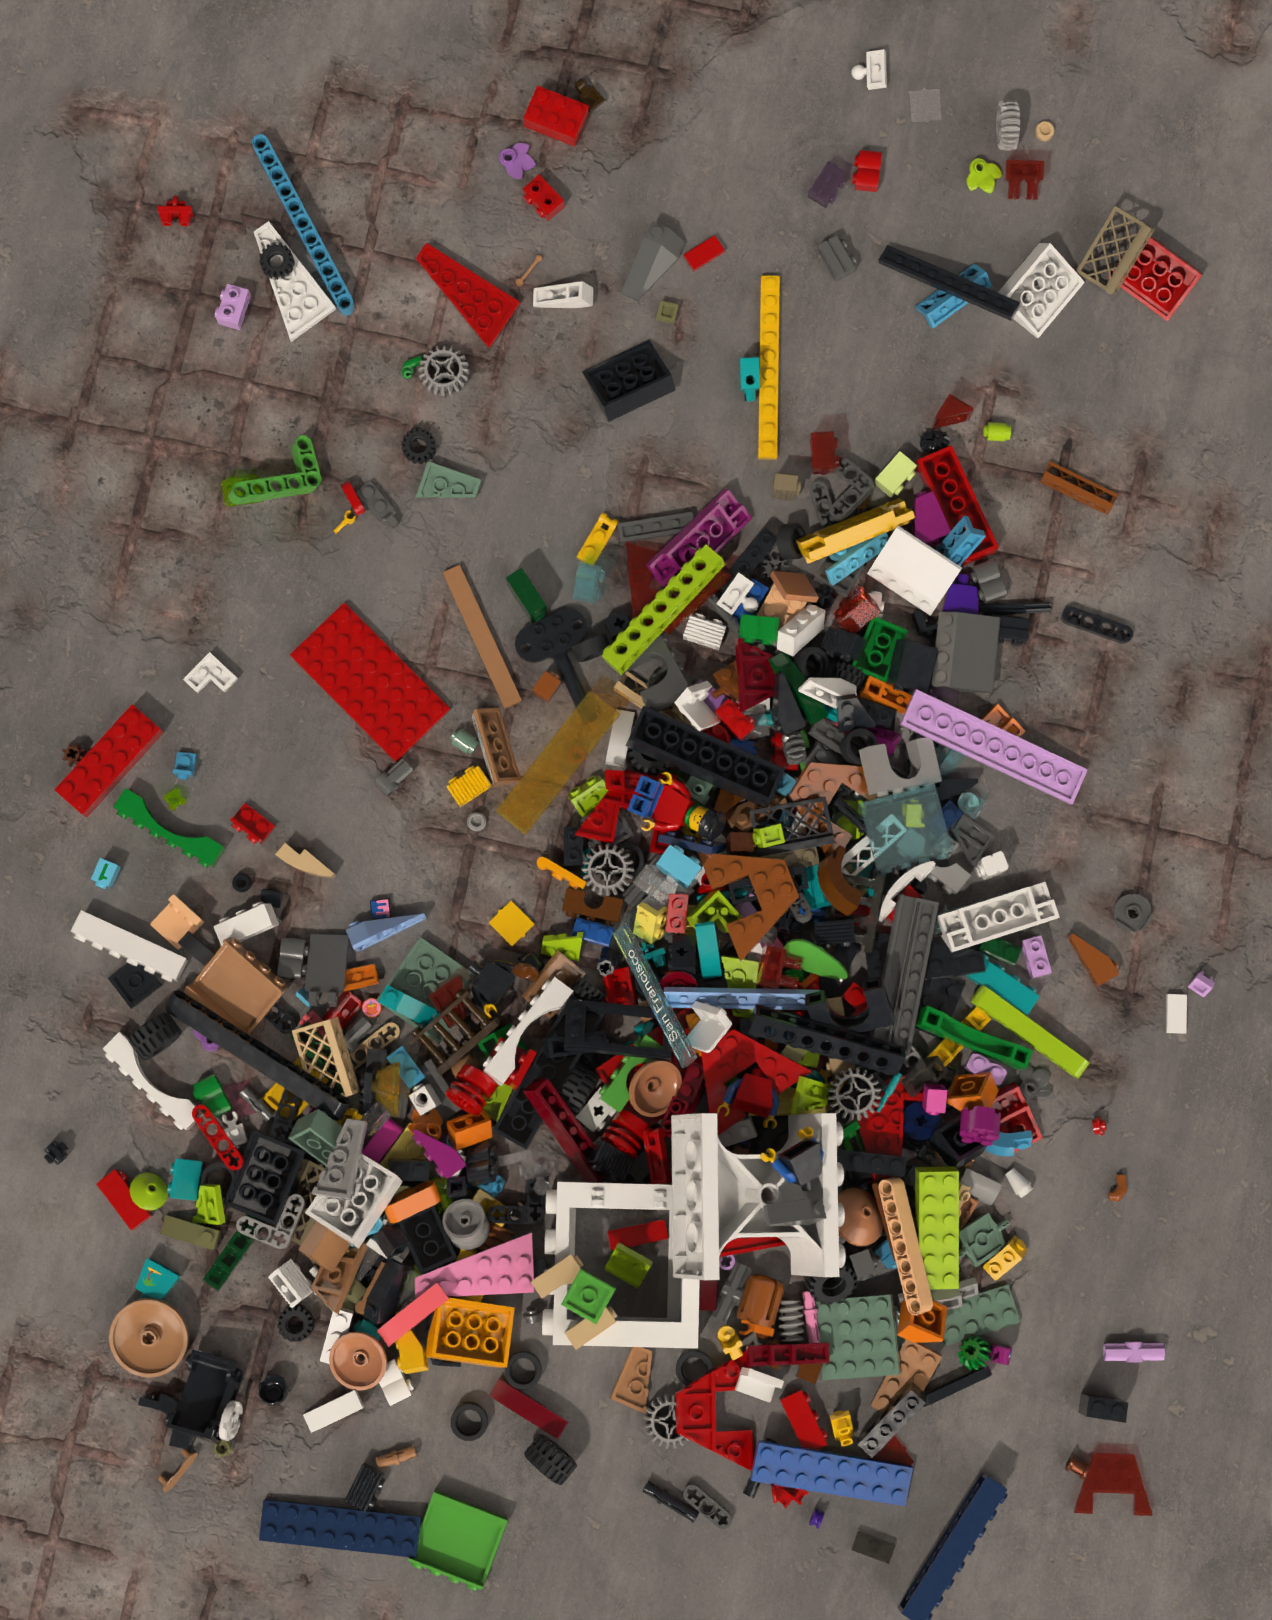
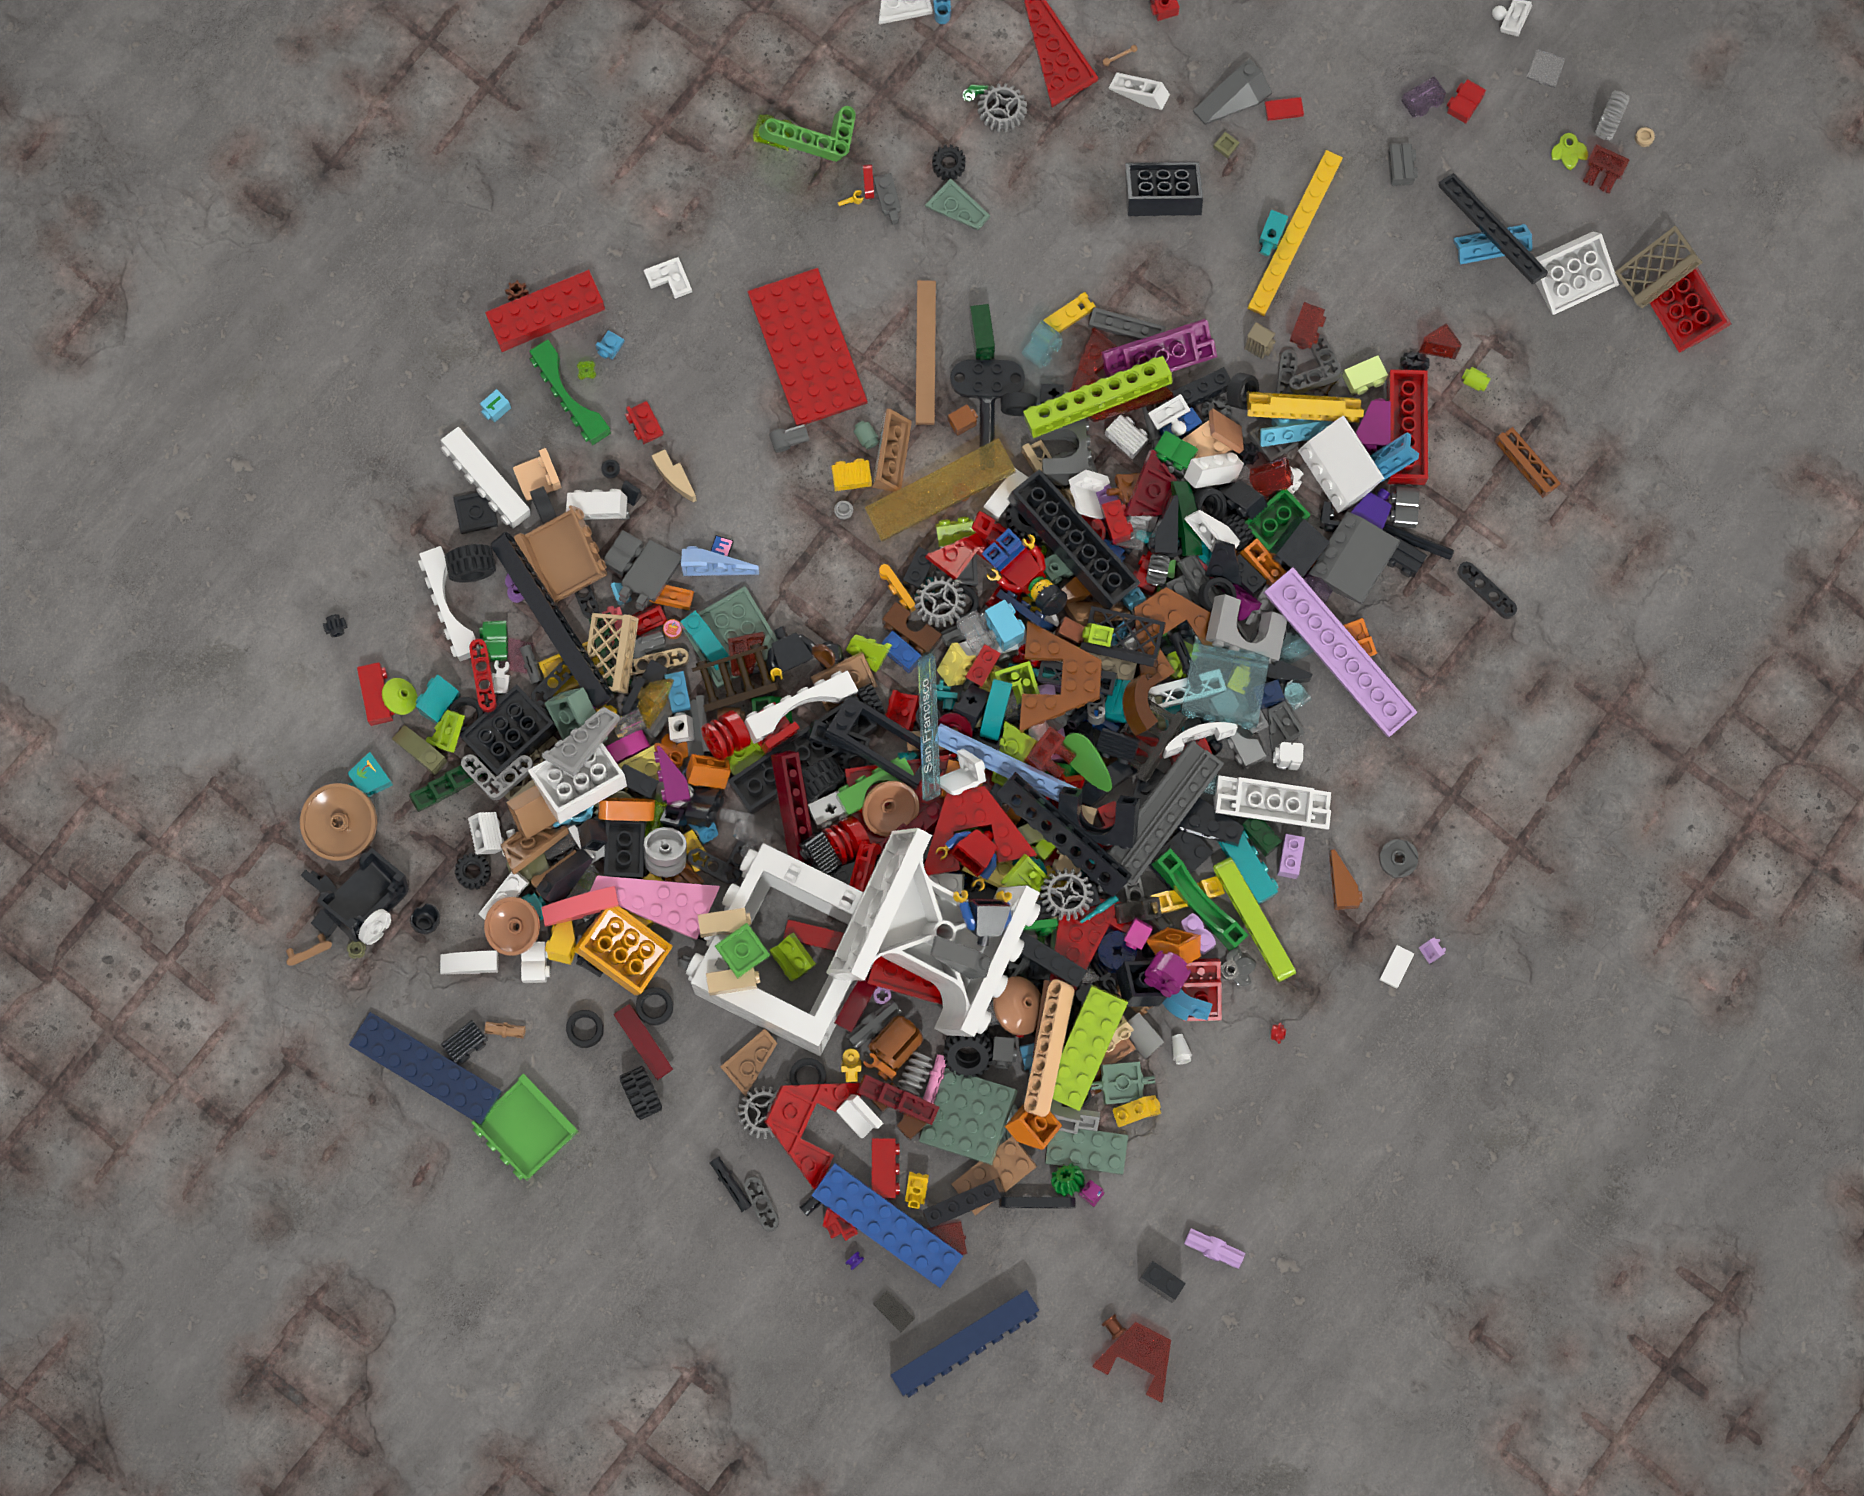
camera: 25 degrees right, 5 degrees down
(511, 923) = (832, 612): yellow piece -> none
(608, 961) = (902, 682): black piece -> none
(1120, 1190) = (1270, 1100): dark orange arm -> none

